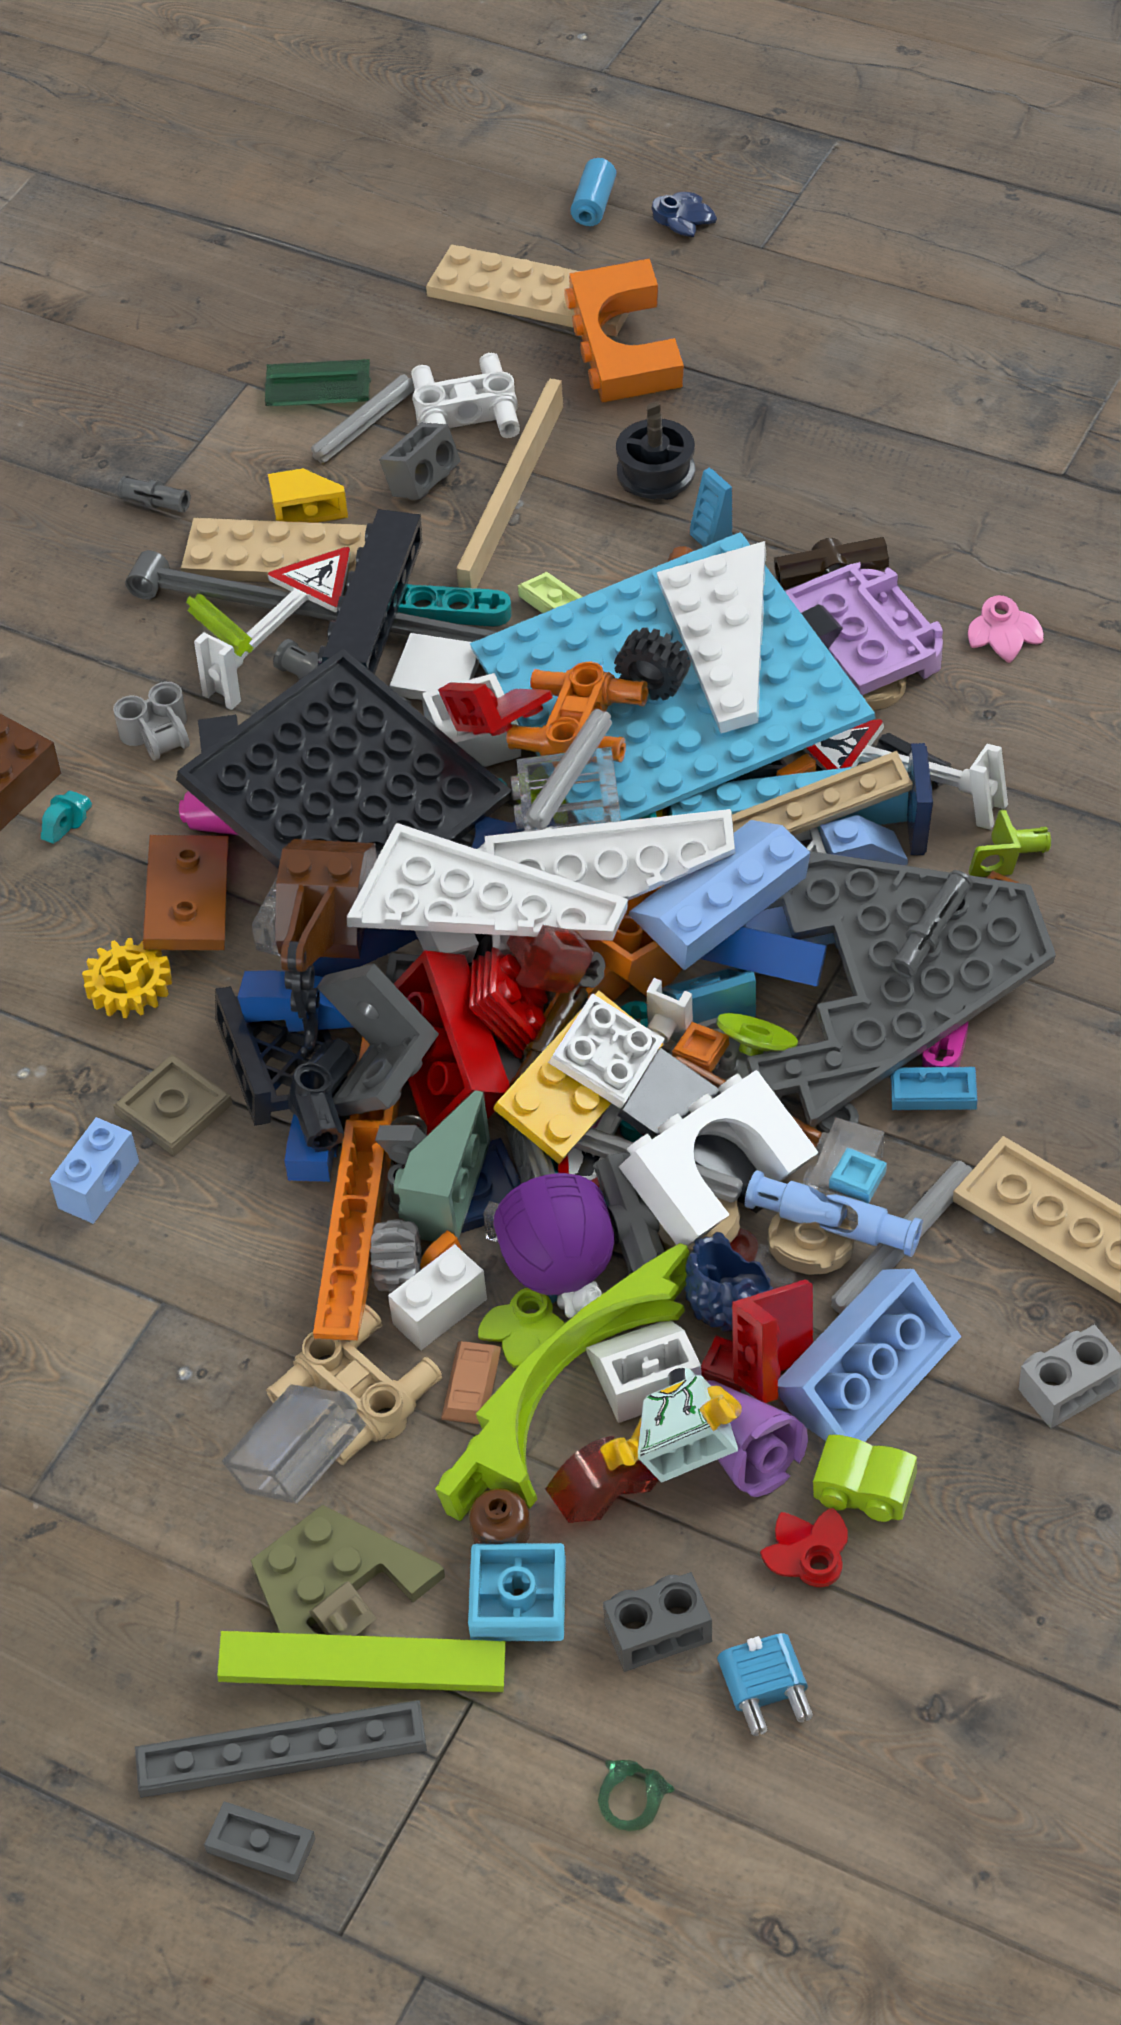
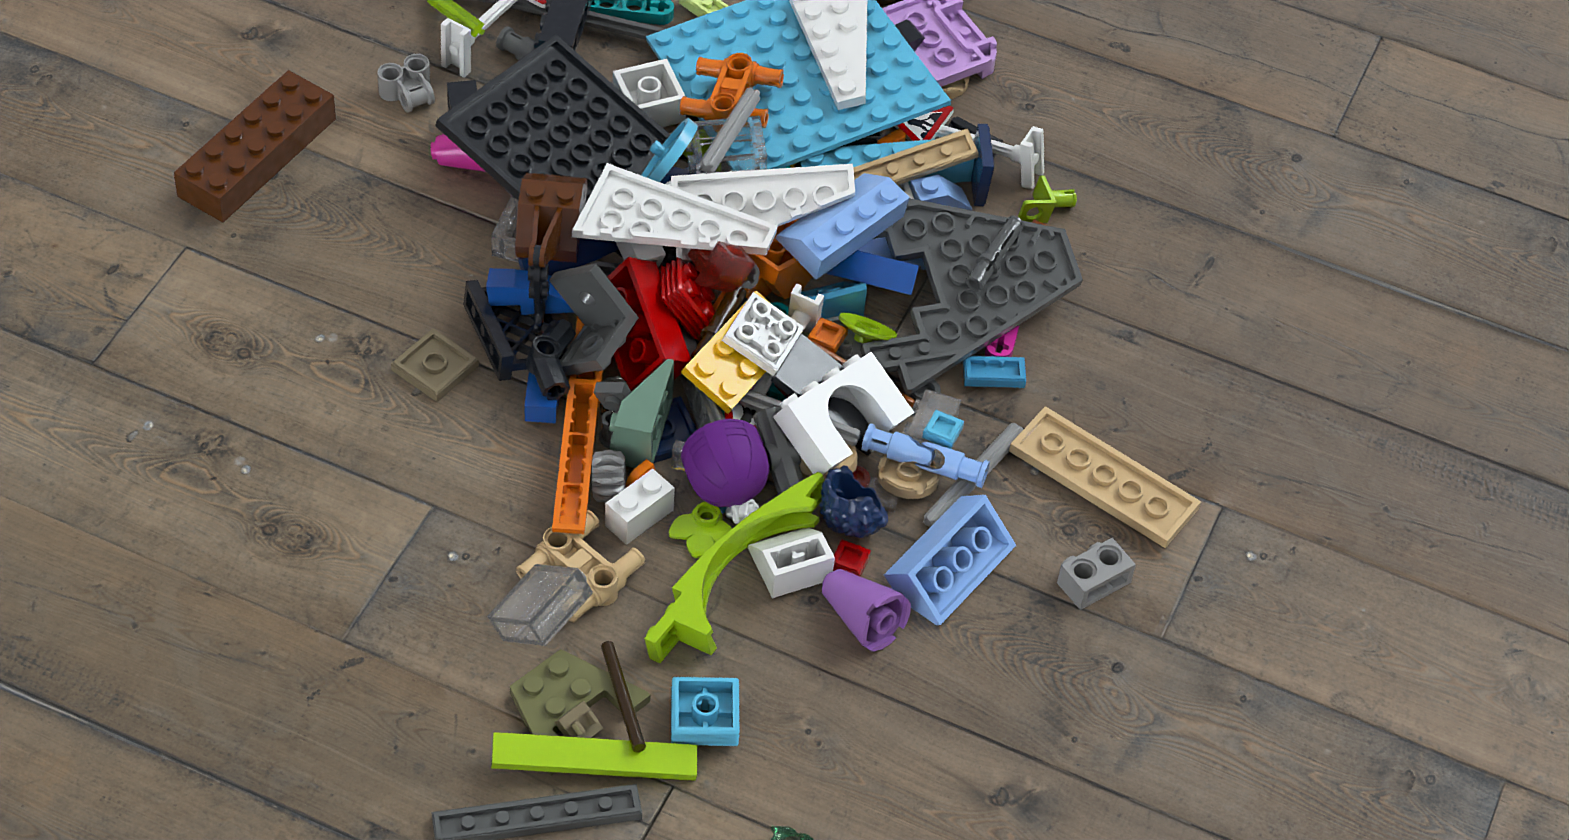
camera: 10 degrees left, 0 degrees up
(63, 814) = (341, 148): teal piece -> none
(94, 1170) = (380, 409): light blue brick -> none
(127, 978) = (397, 271): yellow gear -> none
(186, 893) = (439, 210): dark orange plate -> none
(404, 1574) = (623, 696): none -> dark brown bar
(431, 664) = (618, 50): white tile -> none
(470, 1381) = (664, 567): nougat tile -> none
(478, 711) = (660, 84): red bracket -> none
(485, 804) = (670, 151): none -> medium azure piece
(499, 1518) = (691, 659): reddish brown head -> none
(587, 1488) = (760, 633): clear red brick -> none
(653, 660) = (795, 48): black tyre -> none
(663, 1631) = (808, 739): dark grey brick -> none
(679, 1428) = (821, 599): light aqua torso -> none
(764, 1674) = (880, 771): dark azure piece -> none
(770, 1336) = (883, 539): red bracket -> none
(805, 1544) = (905, 685): red plate -> none
(865, 1478) = (950, 639): lime brick -> none
(1006, 631) = (1040, 46): bright pink plate -> none

